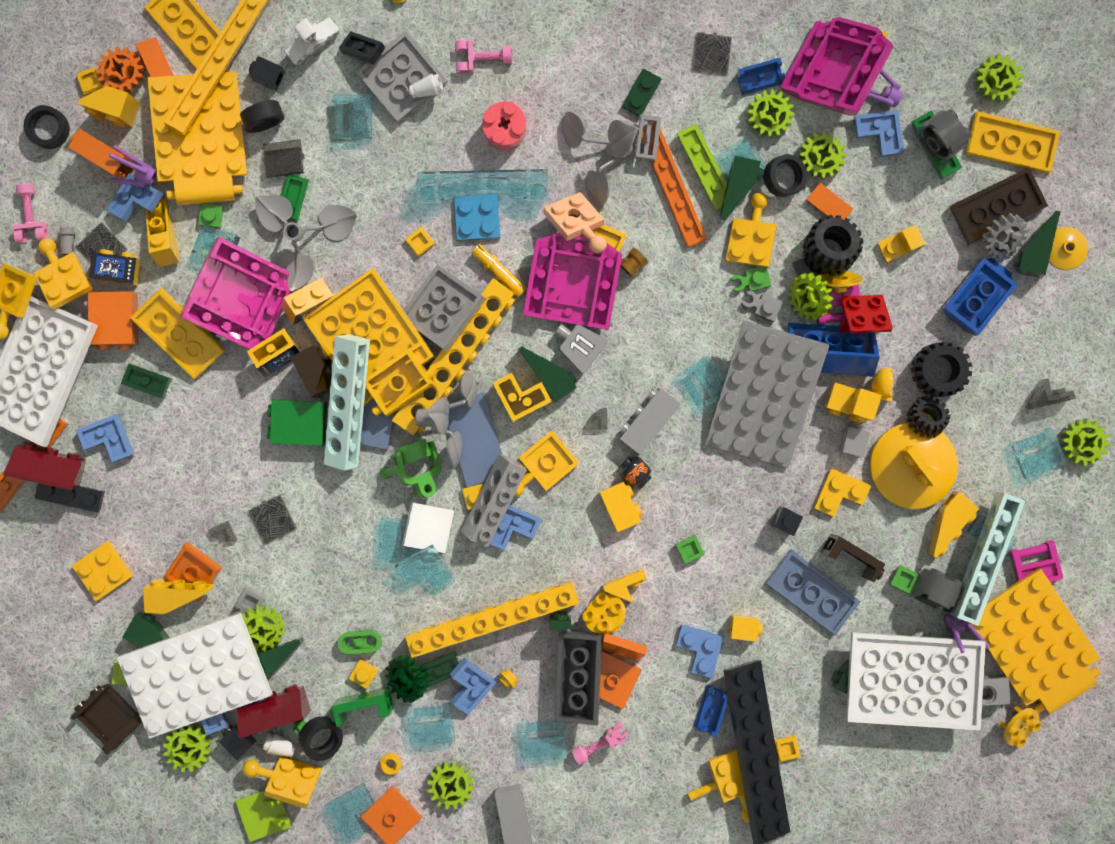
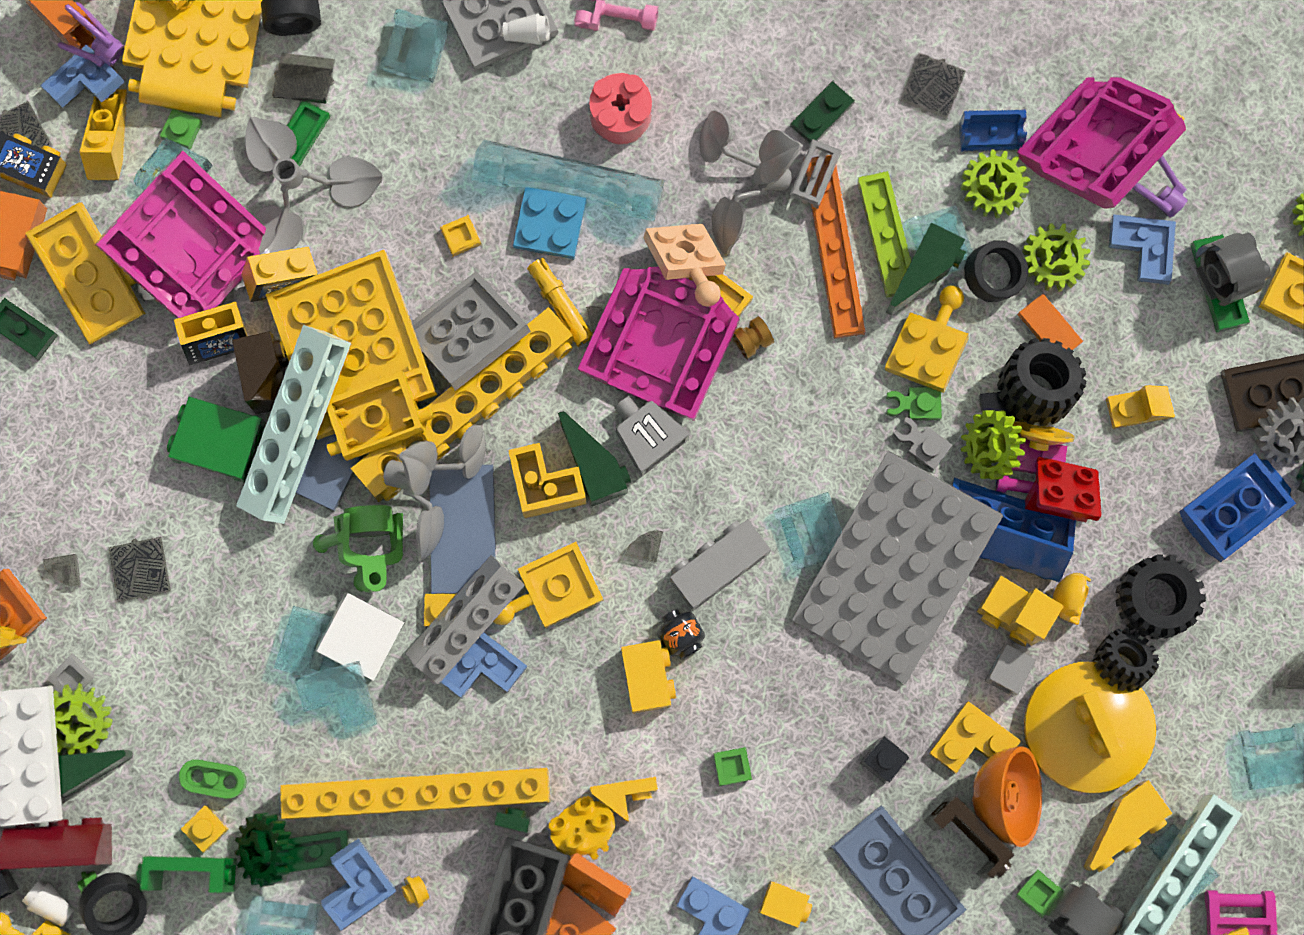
camera: 10 degrees right, 10 degrees down
(872, 525) = (1009, 795): none -> orange piece

